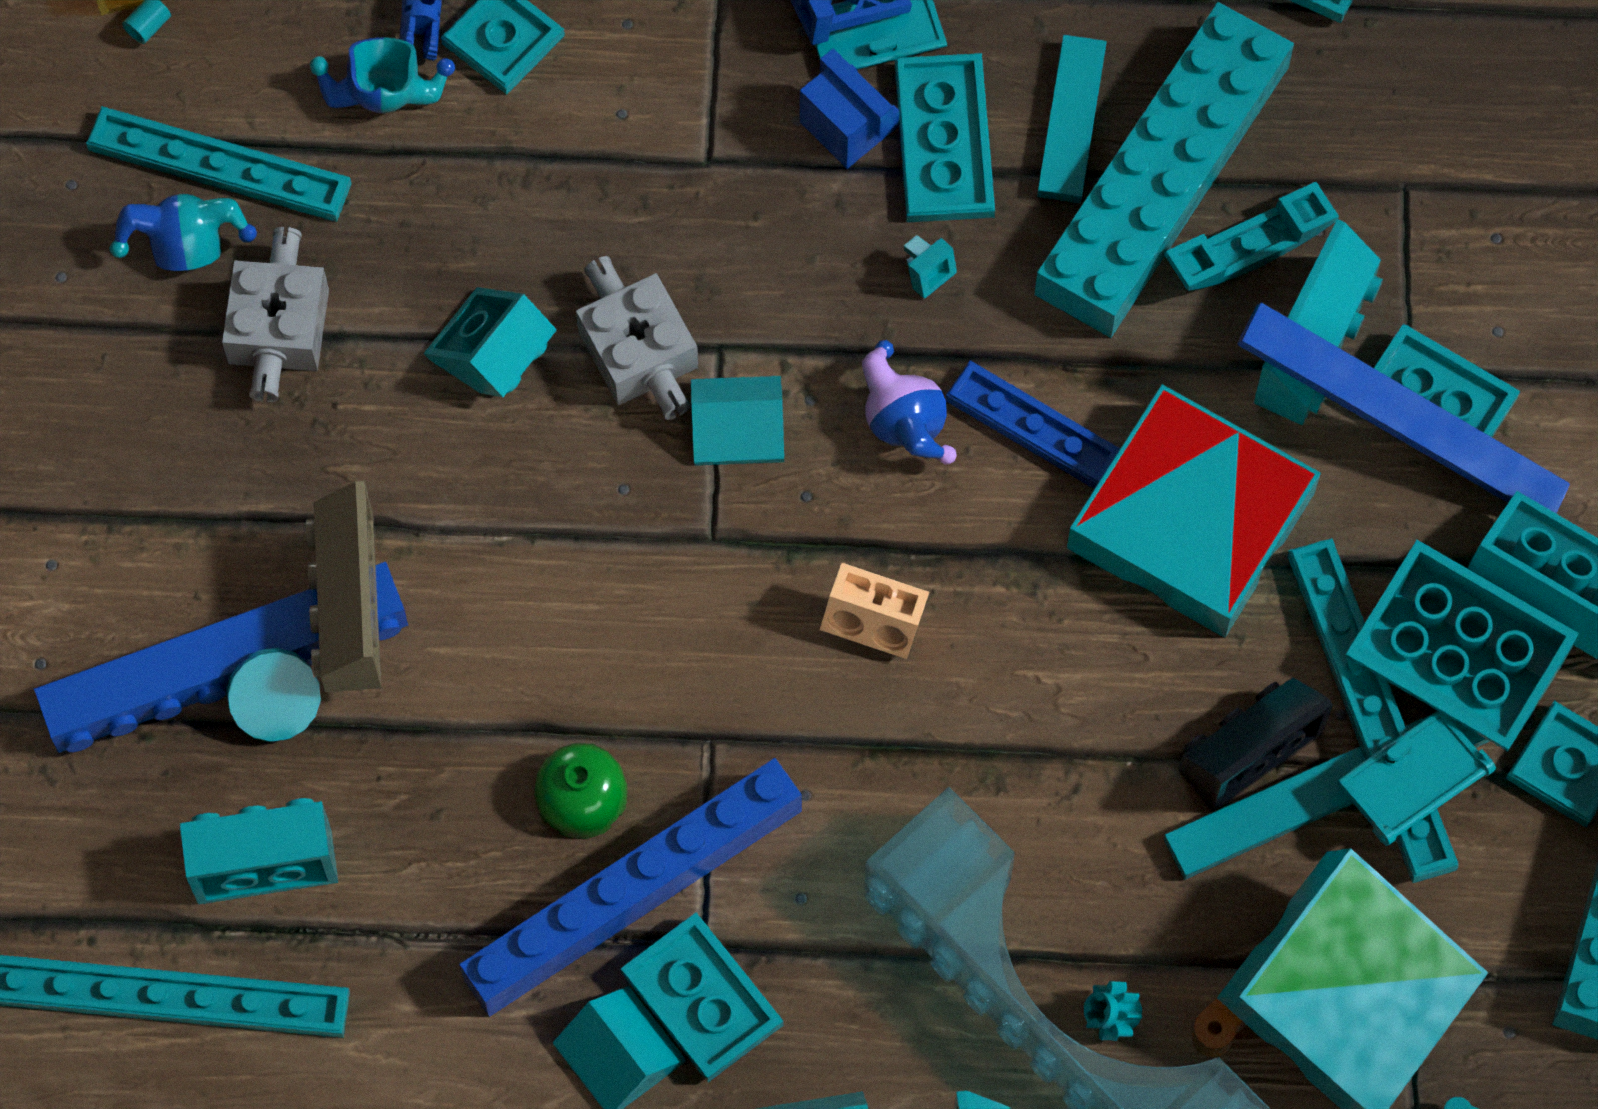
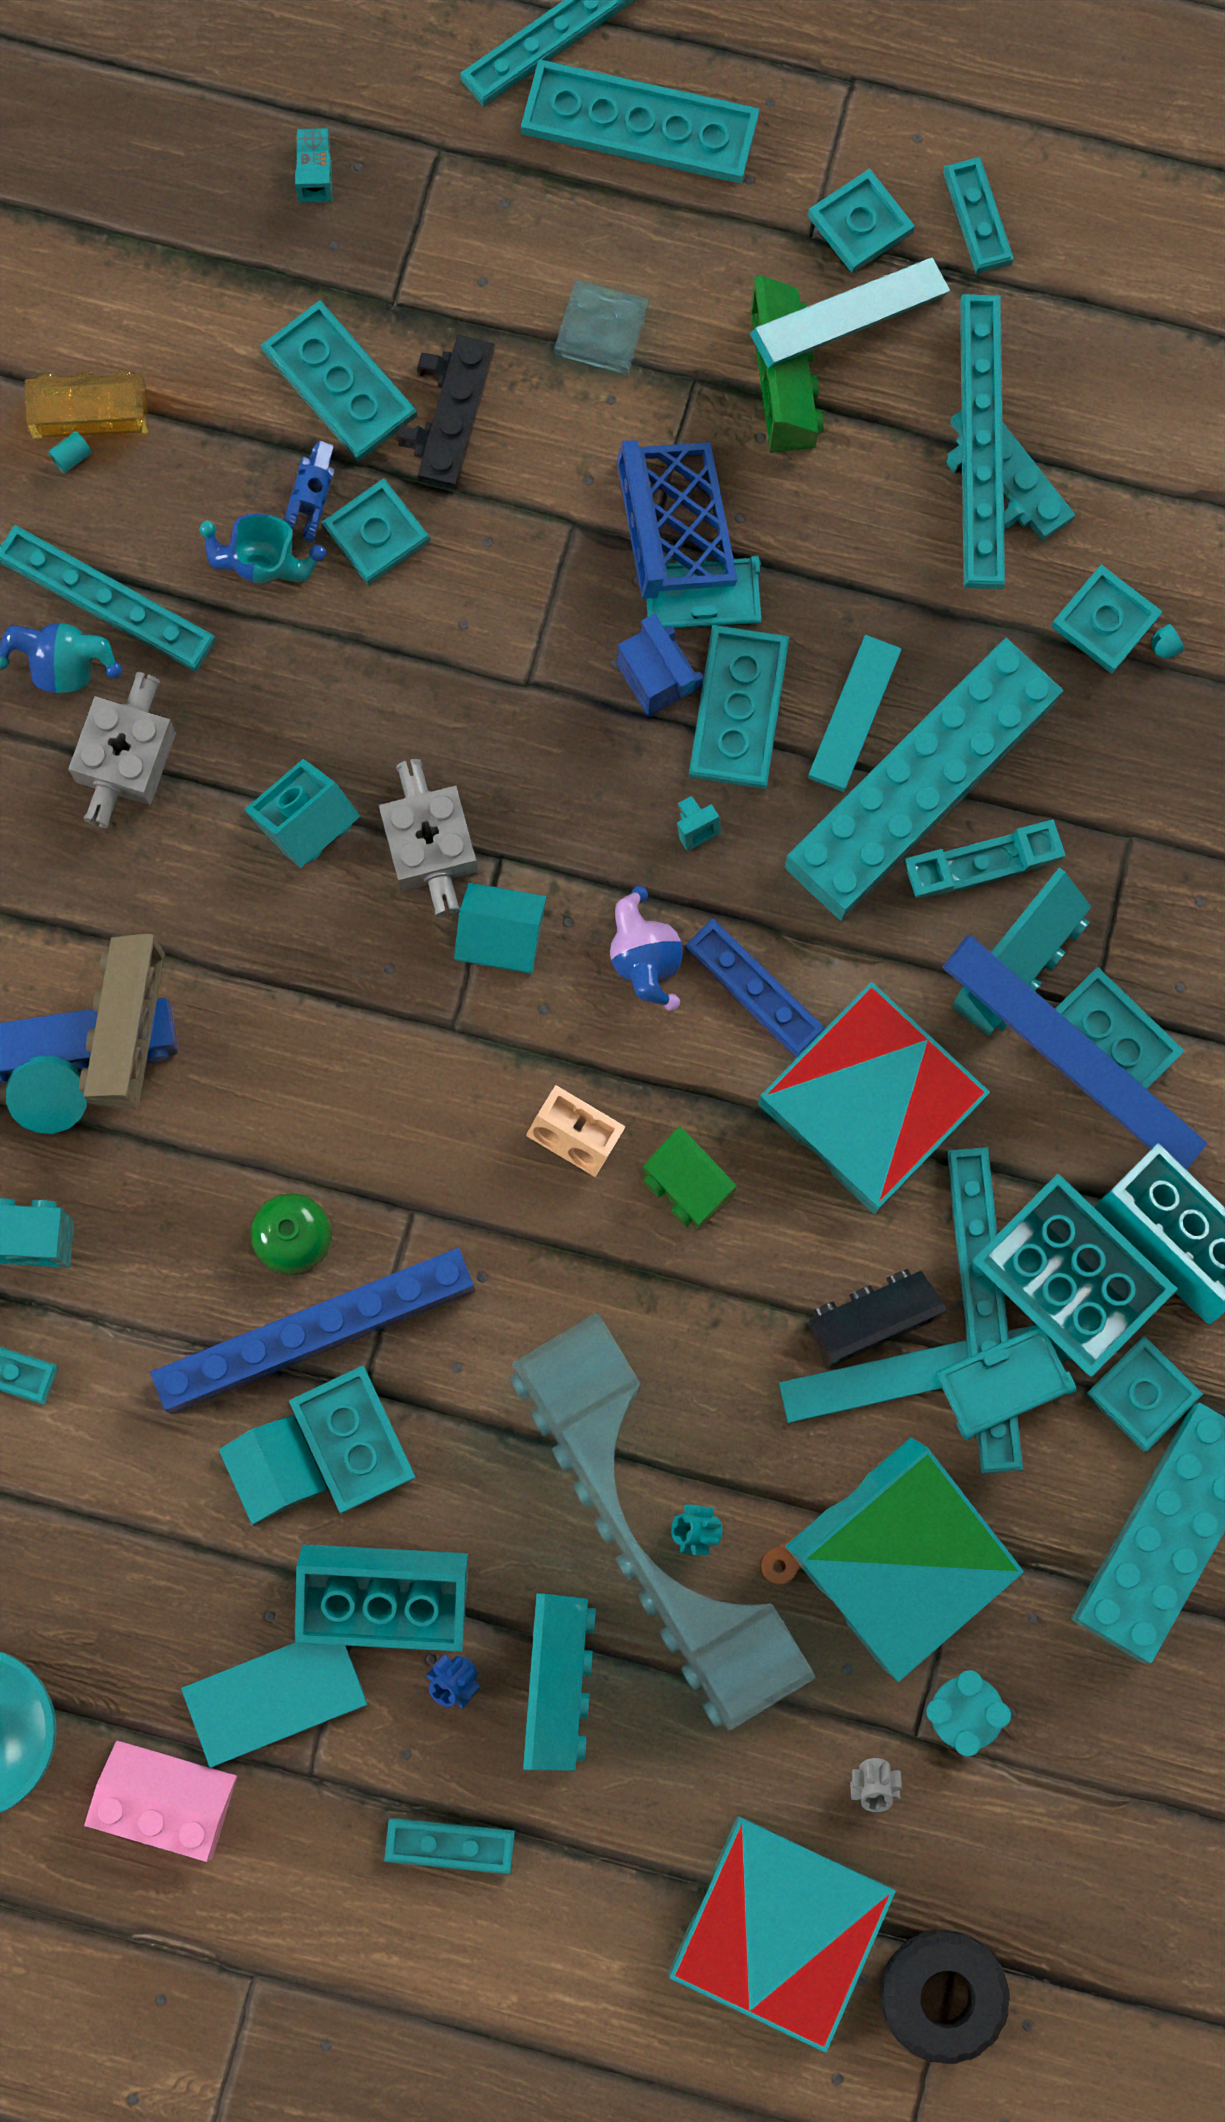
camera: 10 degrees right, 10 degrees up
(1012, 634) = (688, 1179): none -> green slope

